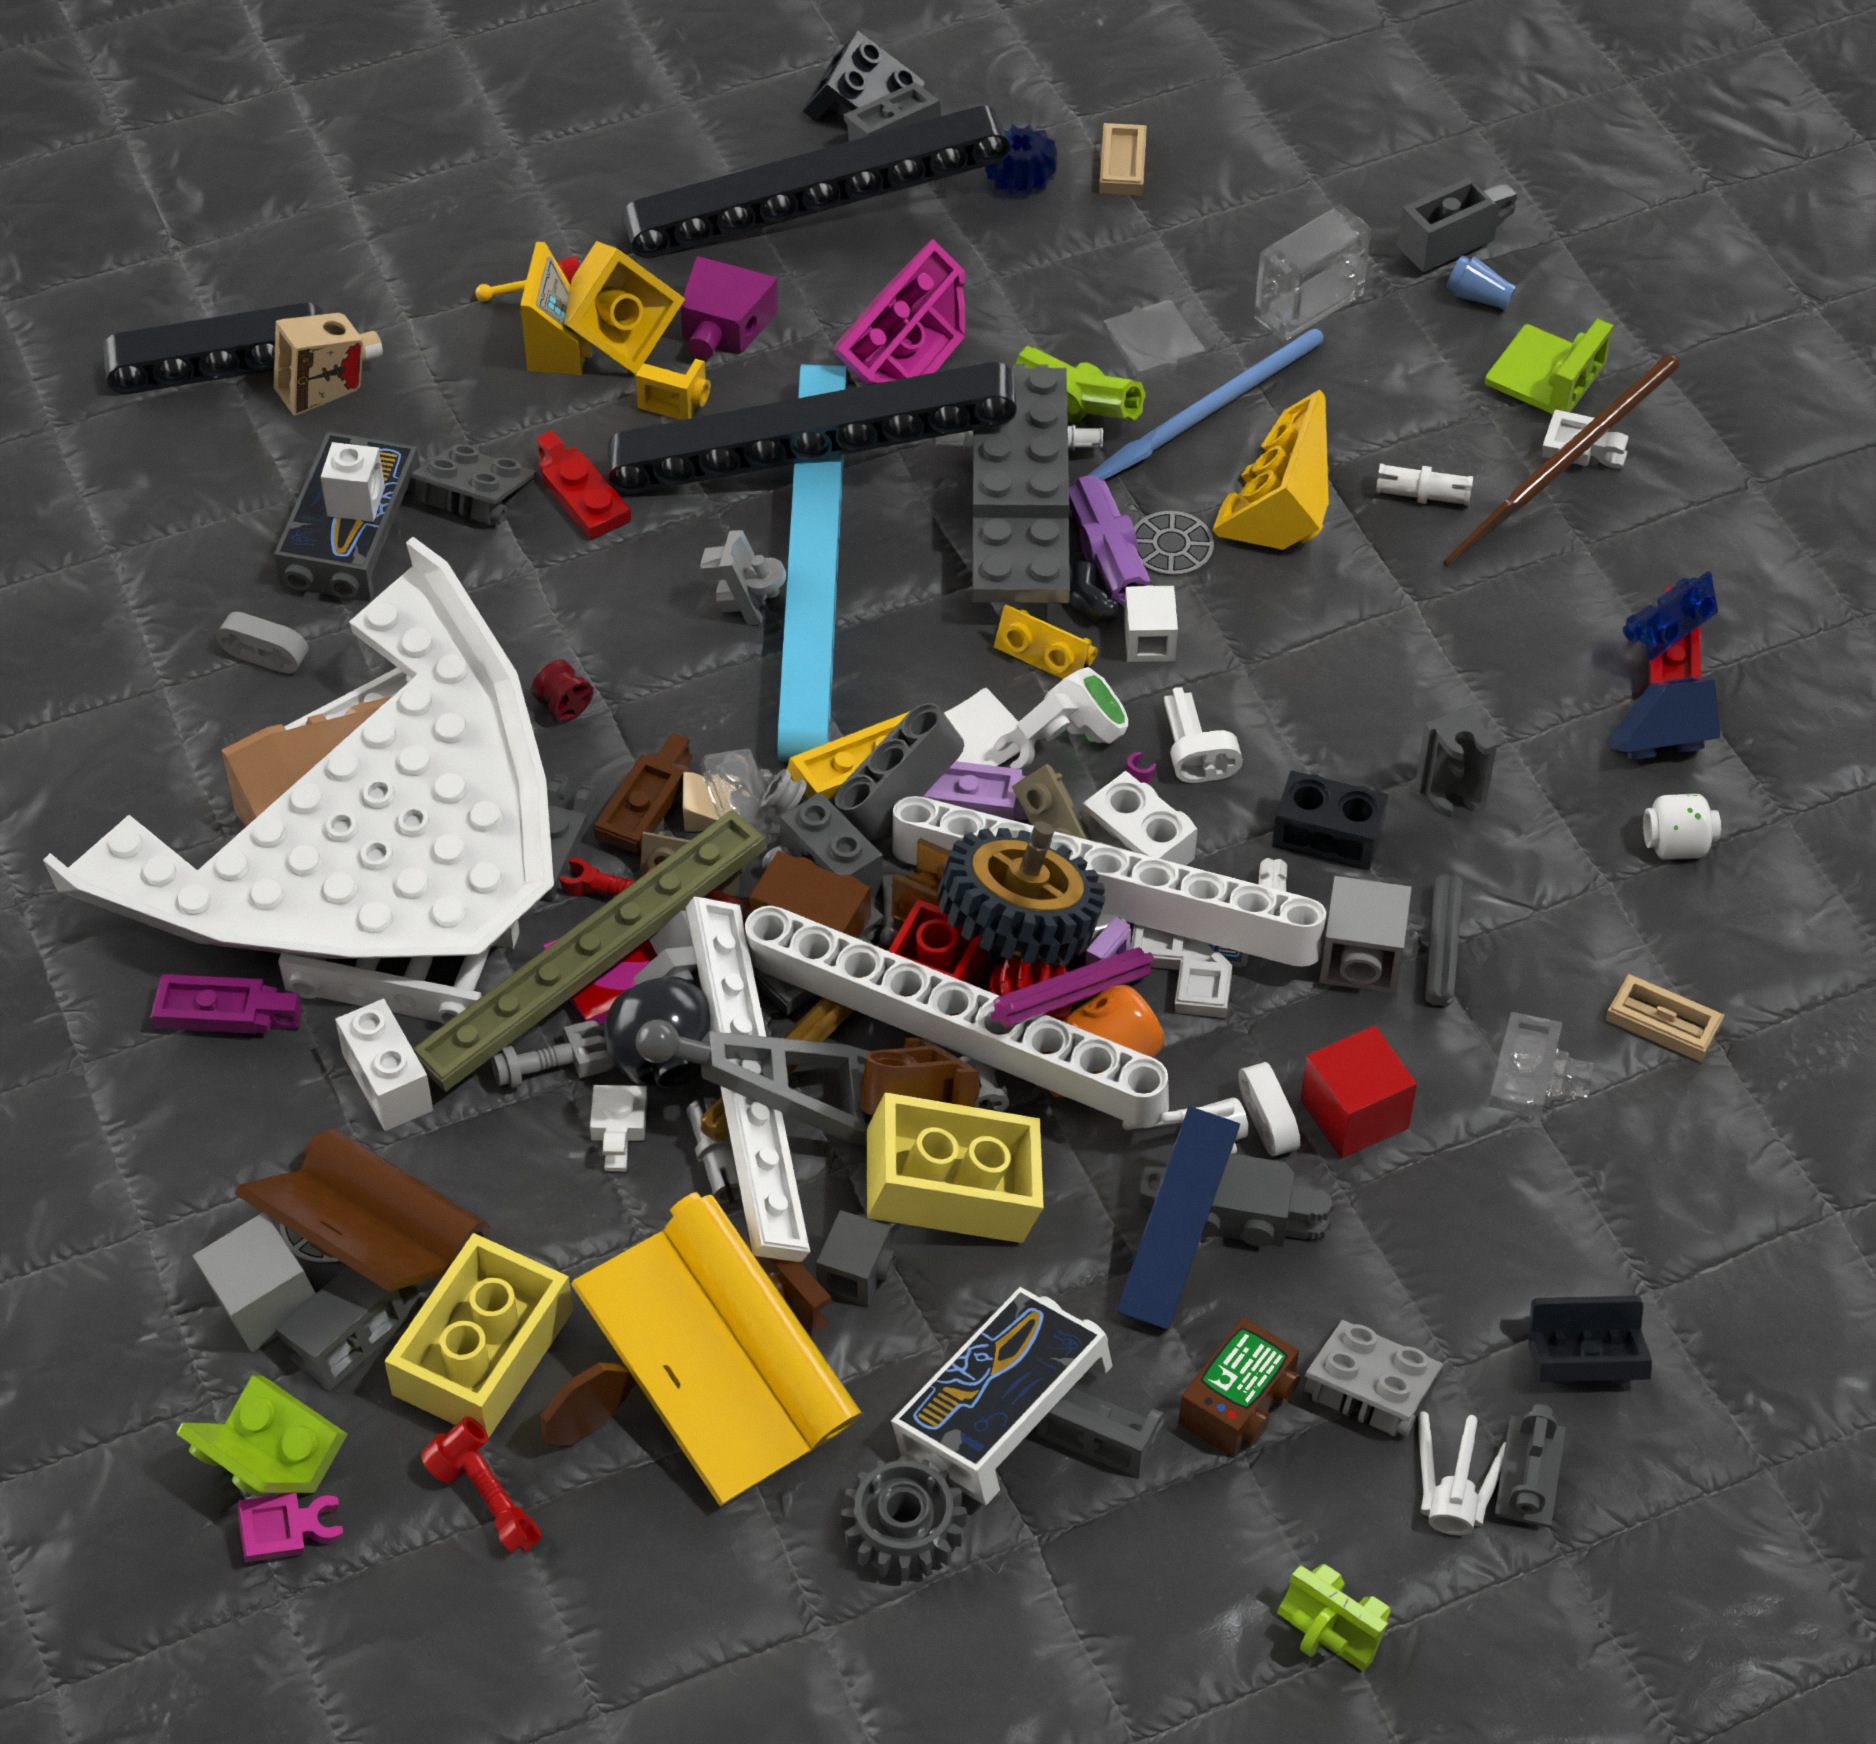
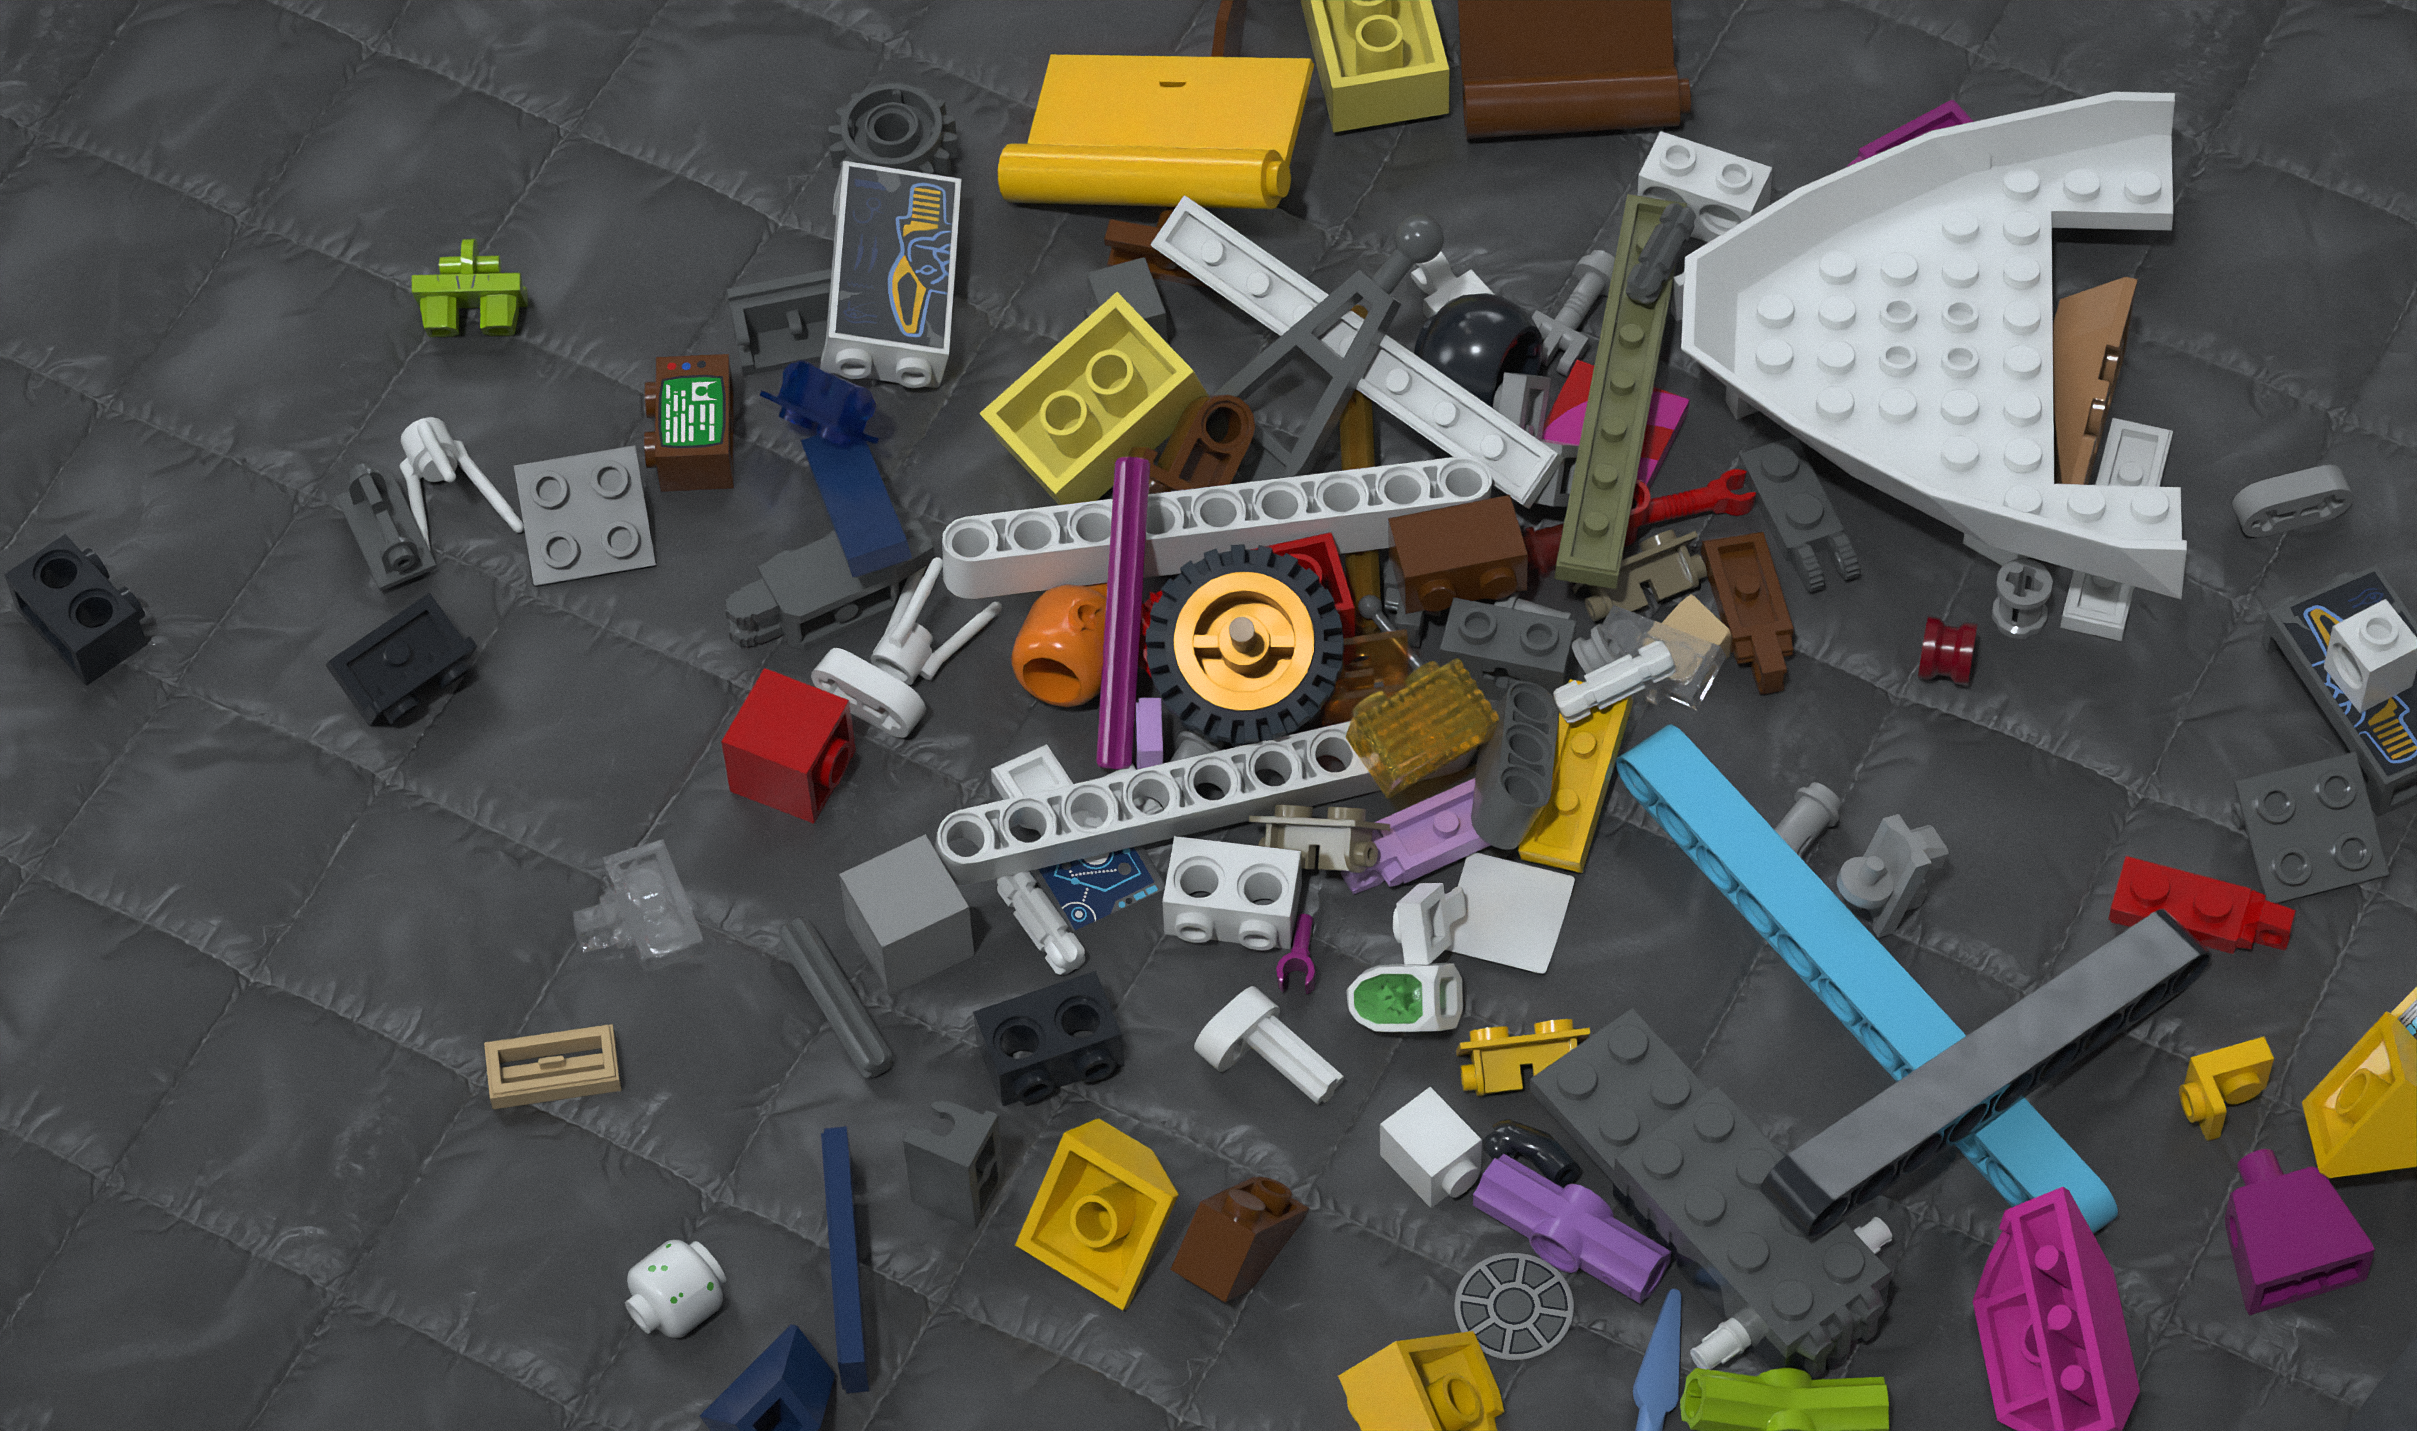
camera: 145 degrees right, 5 degrees up
(475, 1003) = (1660, 253): none -> dark grey axle
(750, 659) = (1811, 813): none -> light grey pin
(798, 757) = (1614, 681): none -> white axle
(948, 795) = (1421, 725): none -> clear yellow brick
(1149, 1330) = (821, 397): none -> clear blue hinge
(1307, 645) = (1238, 1236): none -> reddish brown slope
(1373, 706) = (1100, 1211): none -> yellow slope
(1559, 777) = (844, 1260): none -> dark blue tile
(1830, 1554) = (67, 614): none -> black brick

